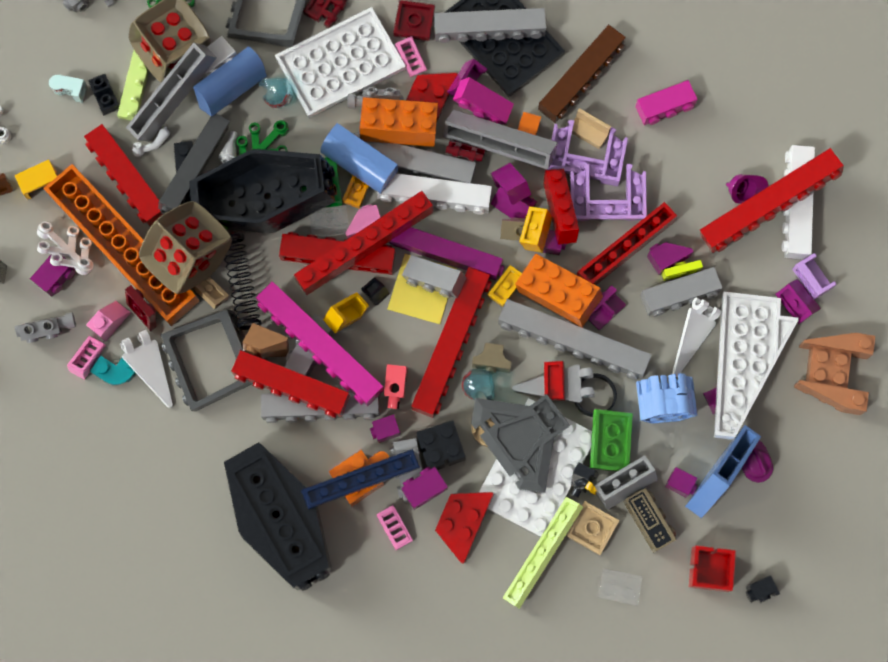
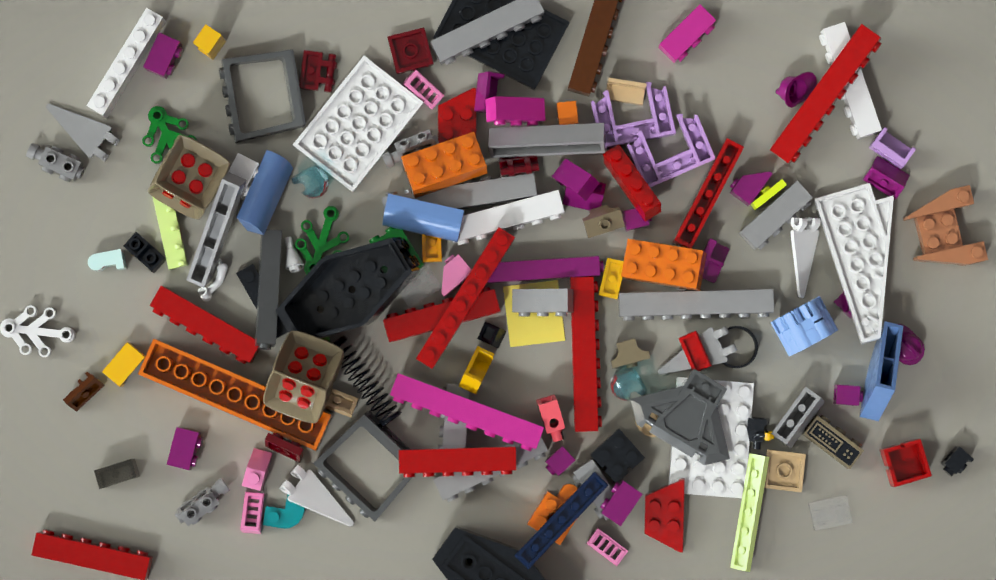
camera: 25 degrees left, 10 degrees up
(81, 264) = (186, 421): white plant -> none
(265, 342) = (415, 432): medium nougat slope -> none
(535, 229) = (619, 216): yellow panel -> none
(611, 440) = (768, 384): bright green plate -> none

